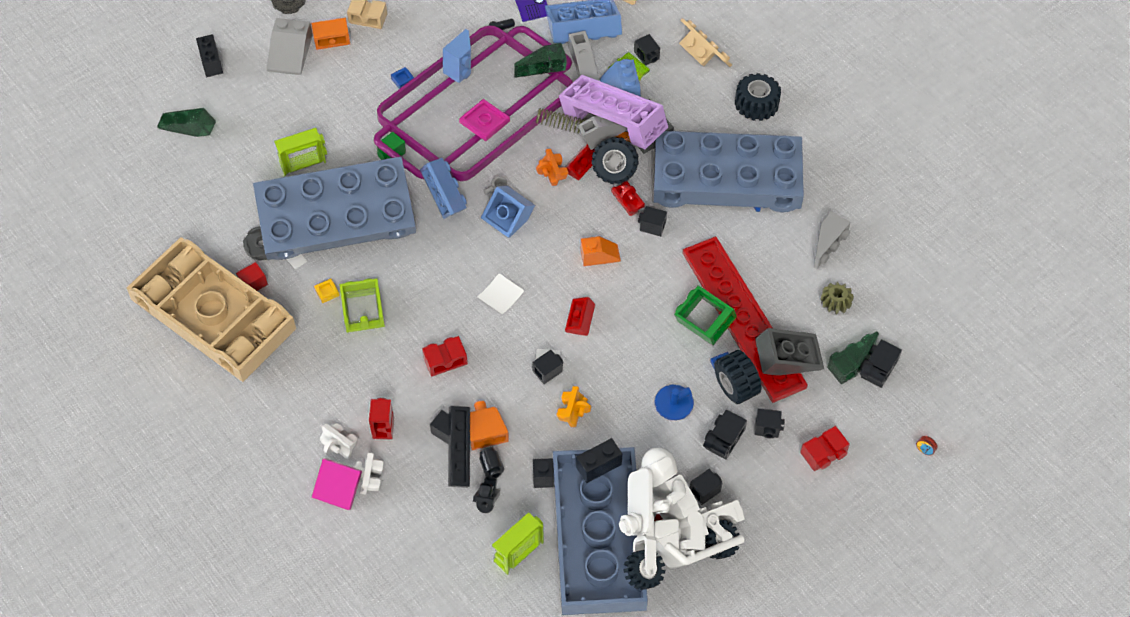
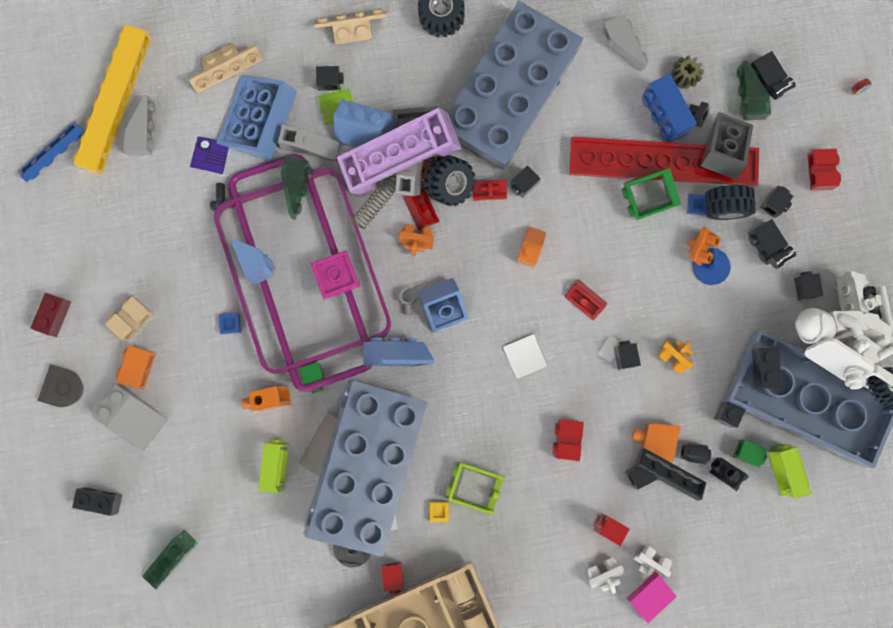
camera: 65 degrees left, 25 degrees up
(355, 126) = (267, 399): none -> orange torso
(516, 506) = (750, 453): none -> green brick
(685, 378) = (700, 246): none -> orange hips
(789, 292) = (668, 108): none -> blue piece
(806, 323) = (700, 112): none -> black tile

